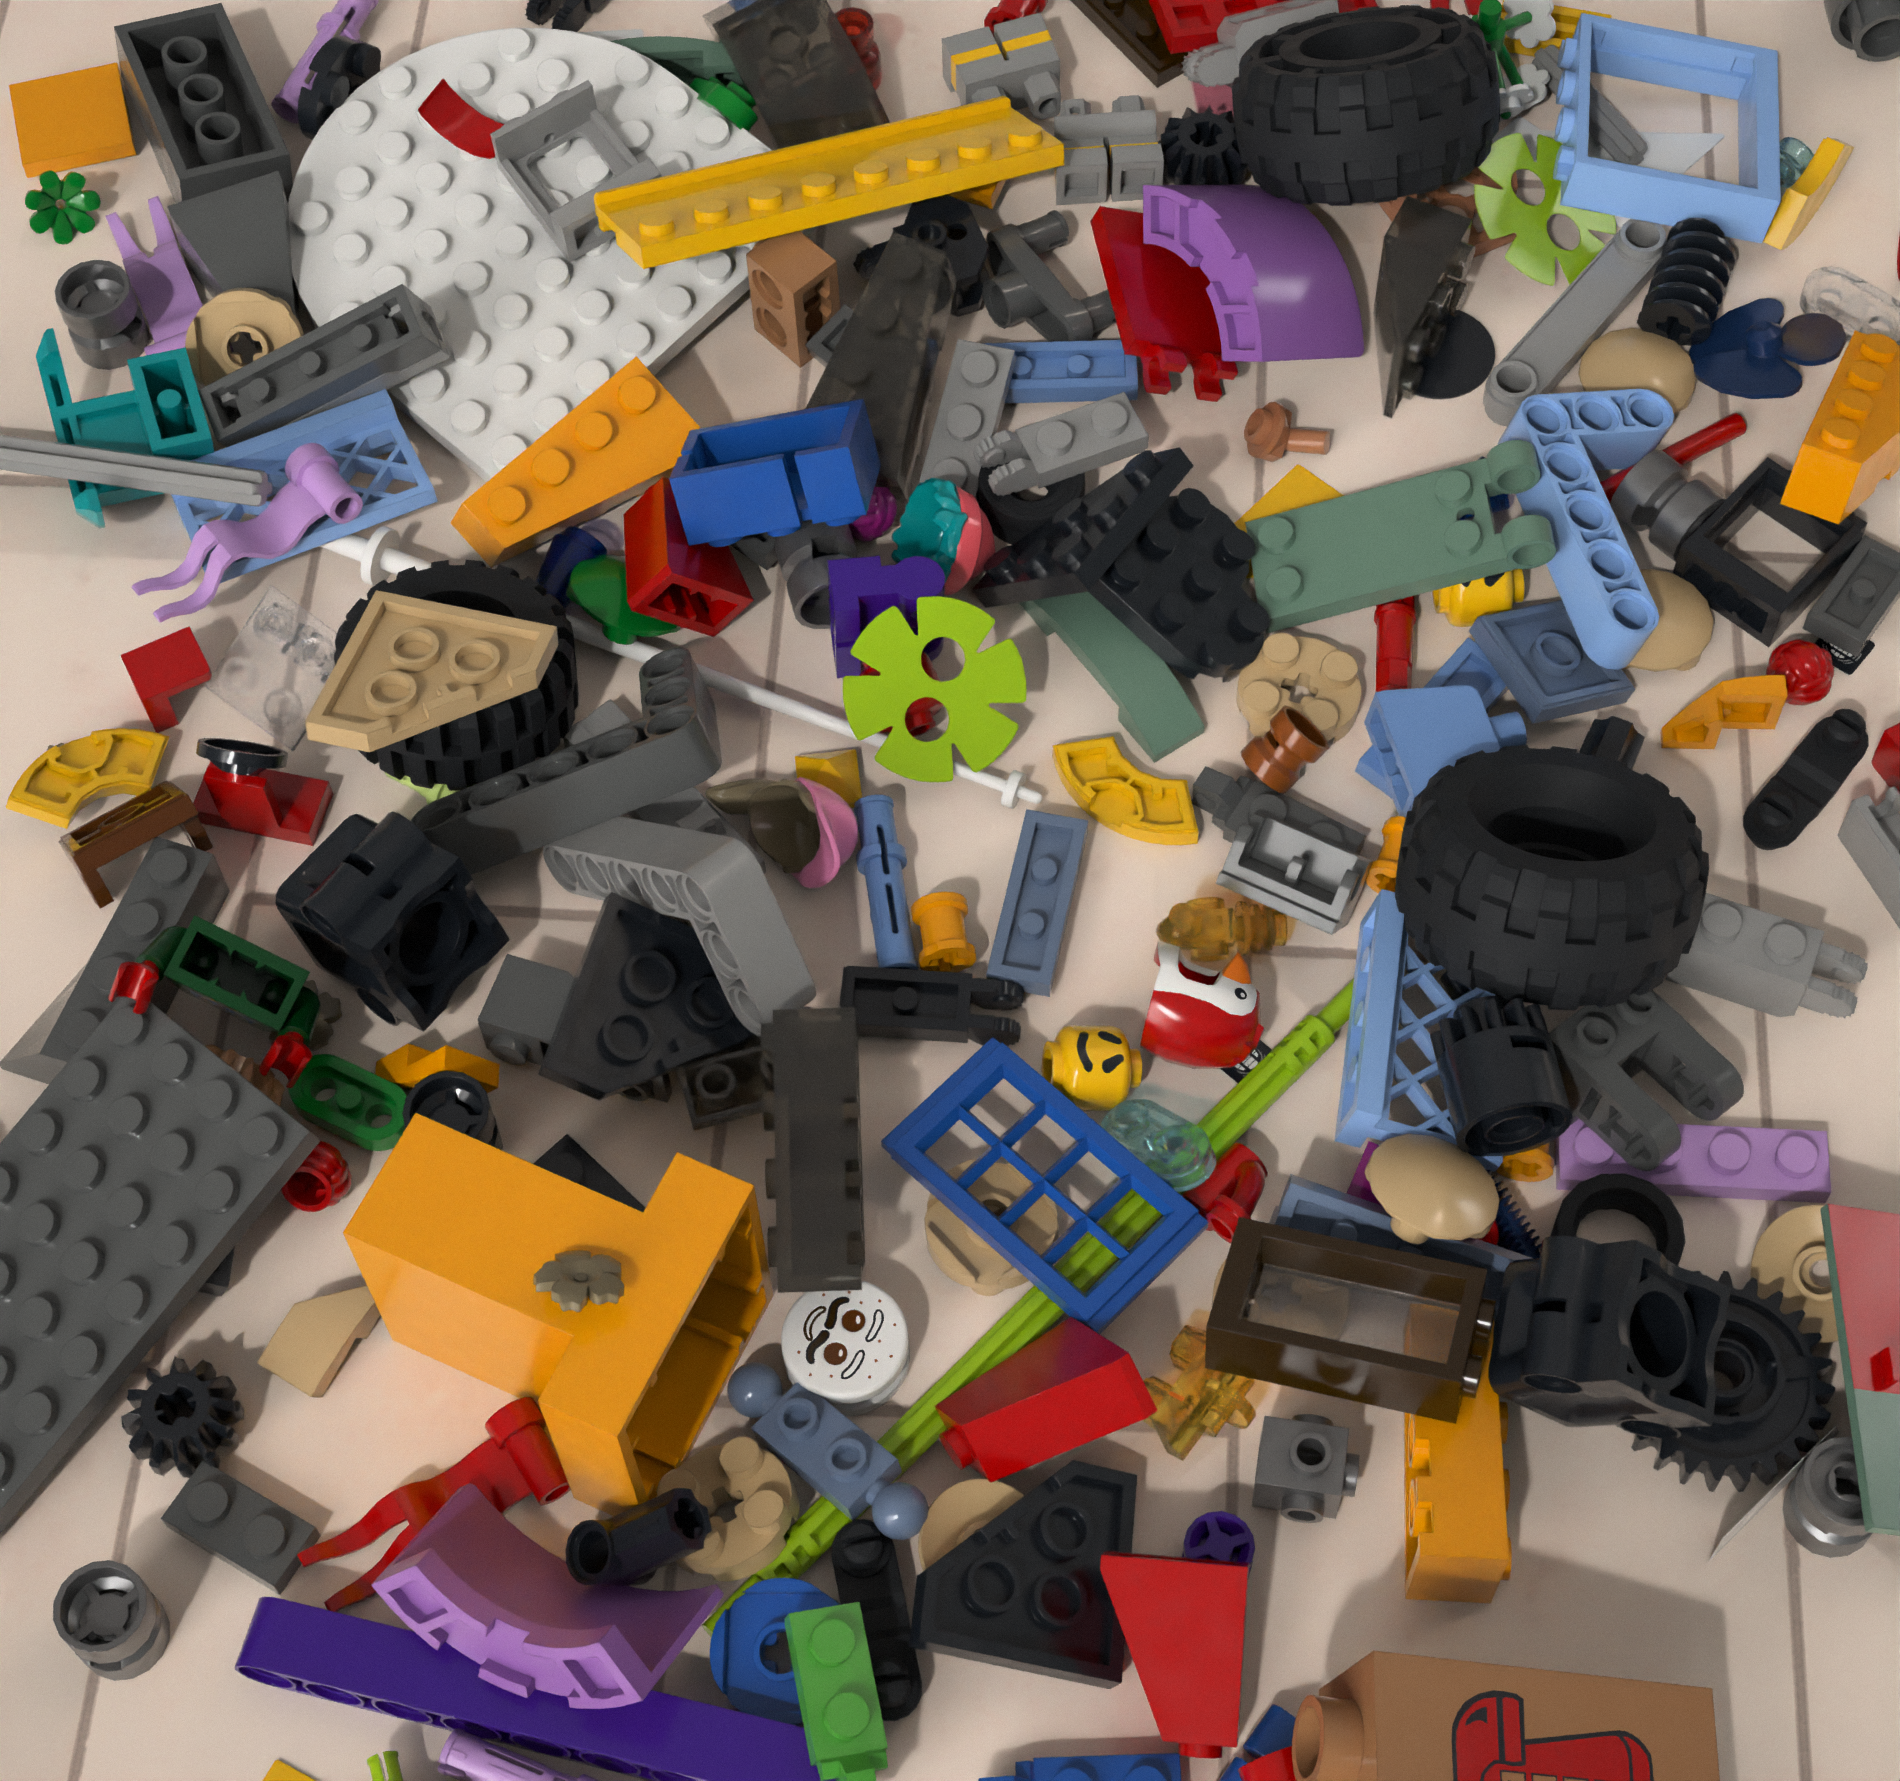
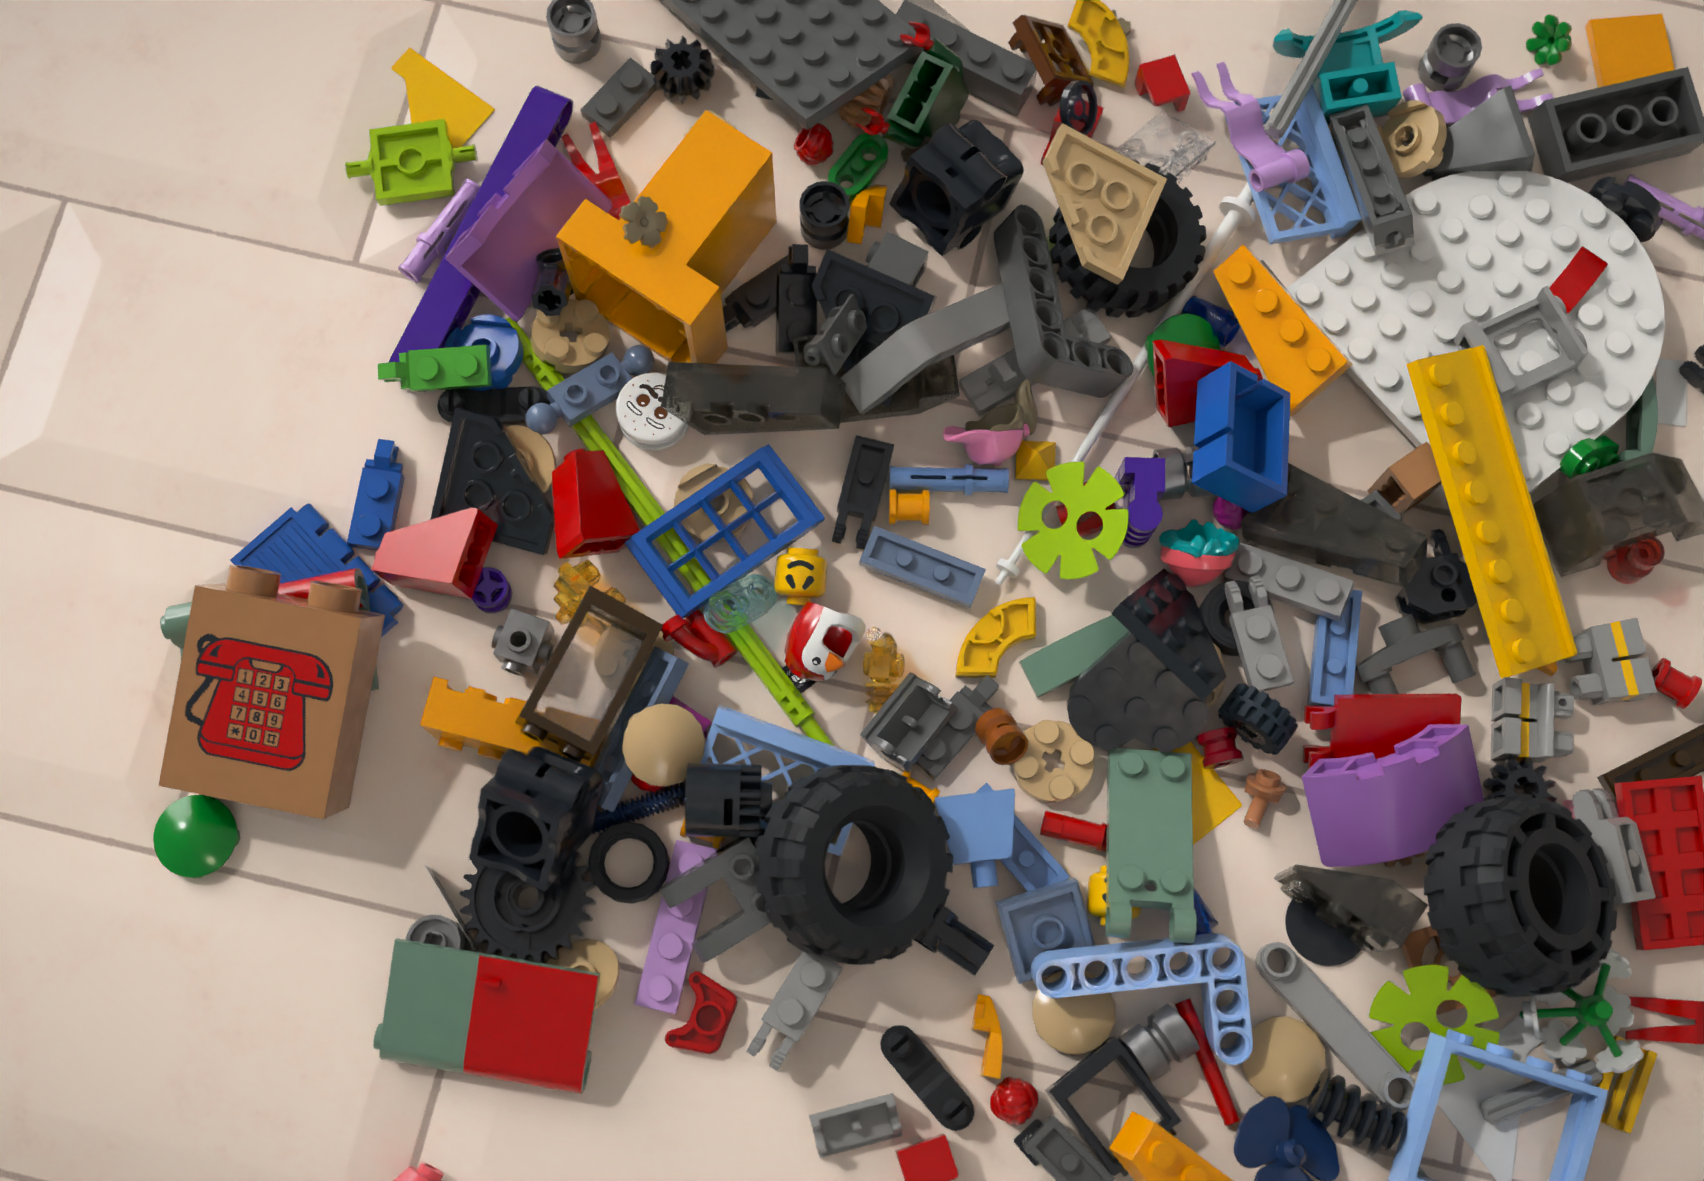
camera: 95 degrees right, 15 degrees up
(612, 1146) = (795, 300): none -> black hinge
(726, 1018) = (837, 336): none -> dark grey hinge
(1190, 420) = (1258, 719): none -> black wheel
(1232, 483) = (1219, 748): none -> dark red wheel
(1816, 1090) = (708, 1018): none -> red piece

